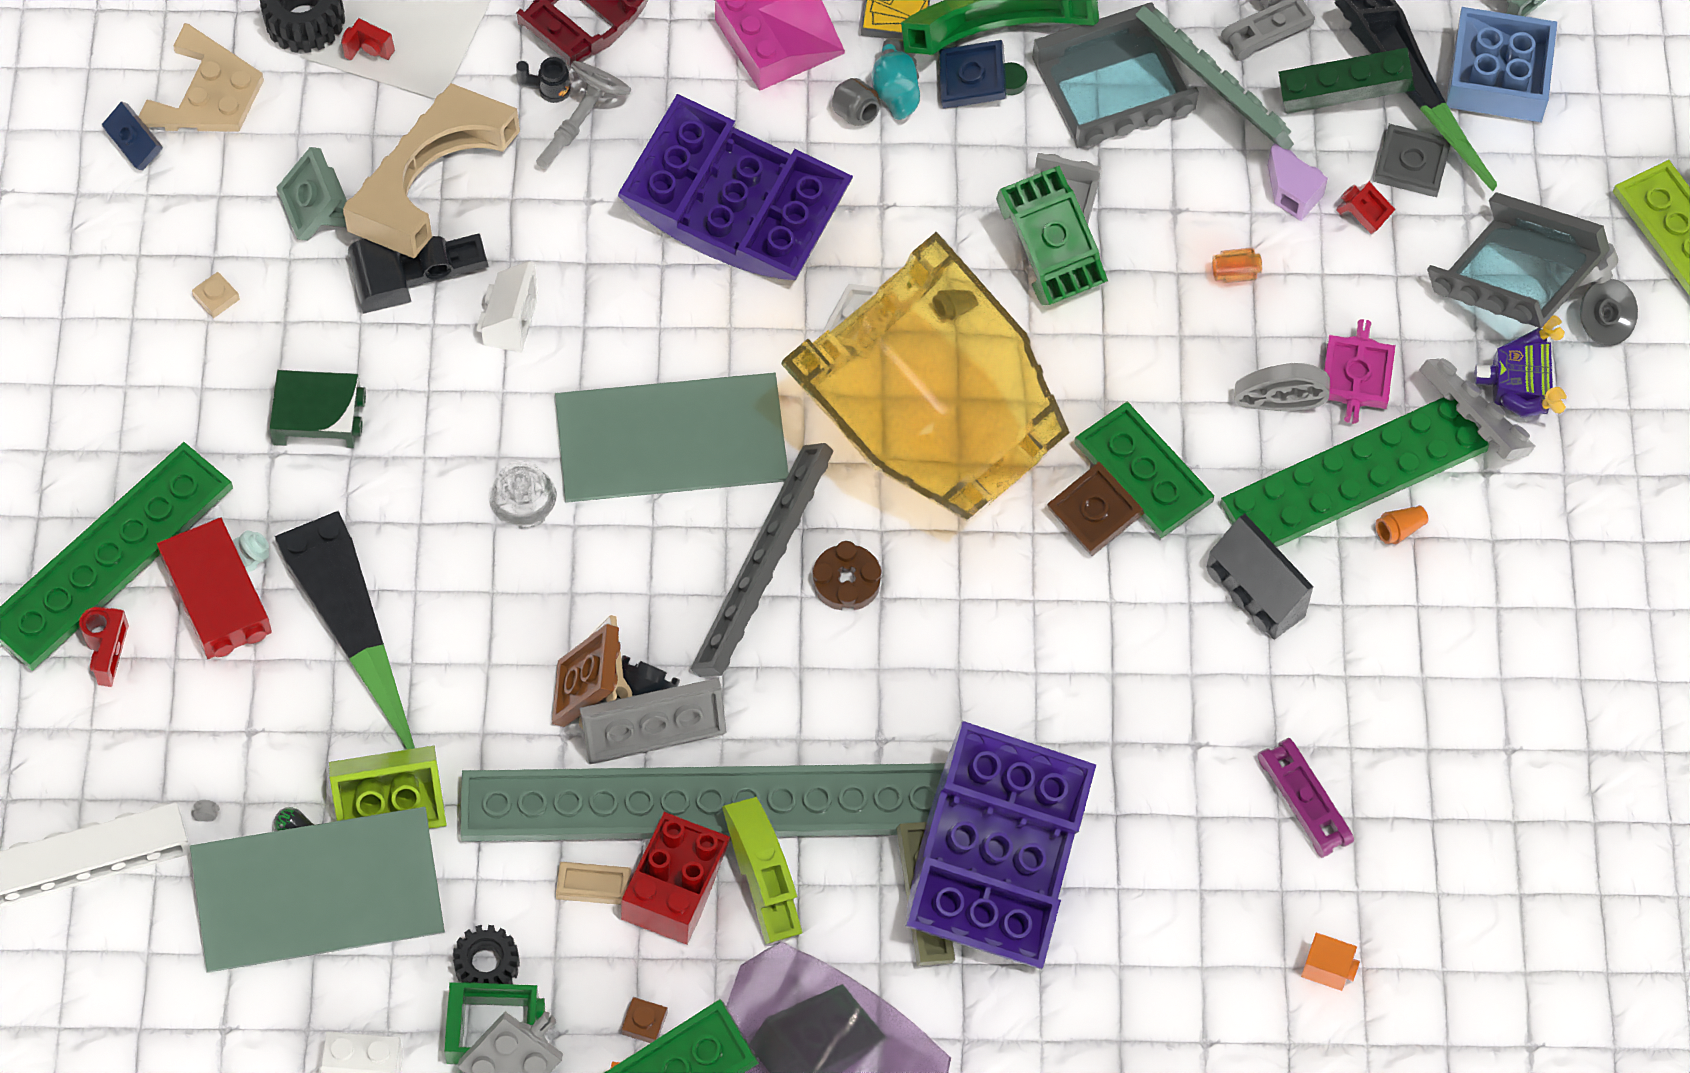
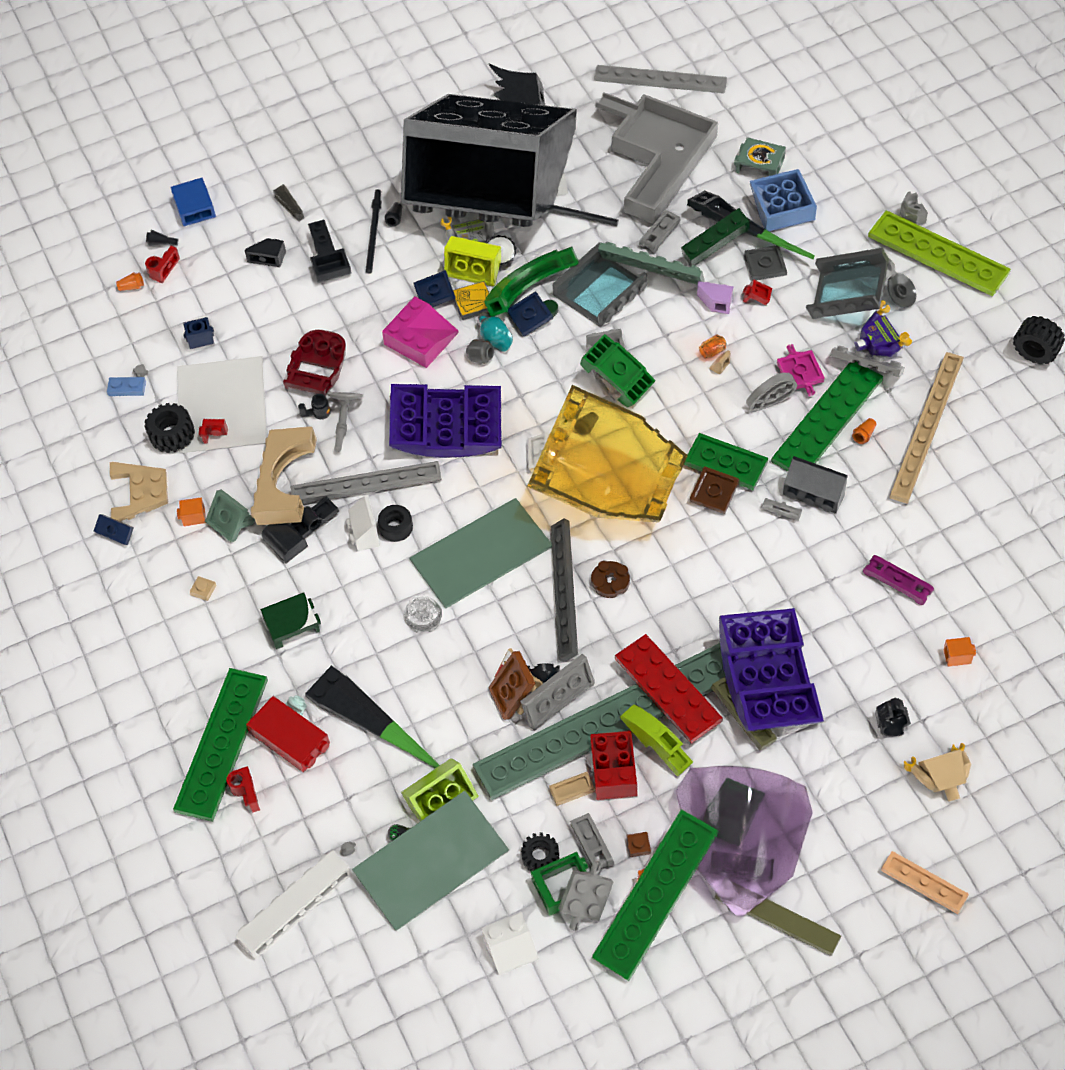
camera: 20 degrees left, 5 degrees down
(263, 162) = (191, 511): none -> orange brick
(556, 239) = (367, 482): none -> light grey plate
(567, 344) = (398, 532): none -> black tyre
(573, 981) = (591, 840): none -> light grey plate
(829, 797) = (668, 688): none -> red plate
(1155, 1016) = (892, 717): none -> black hair
(1187, 591) = (794, 512): none -> light grey pin
(1235, 299) = (721, 362): none -> tan slope
(1508, 565) = (926, 428): none -> tan plate

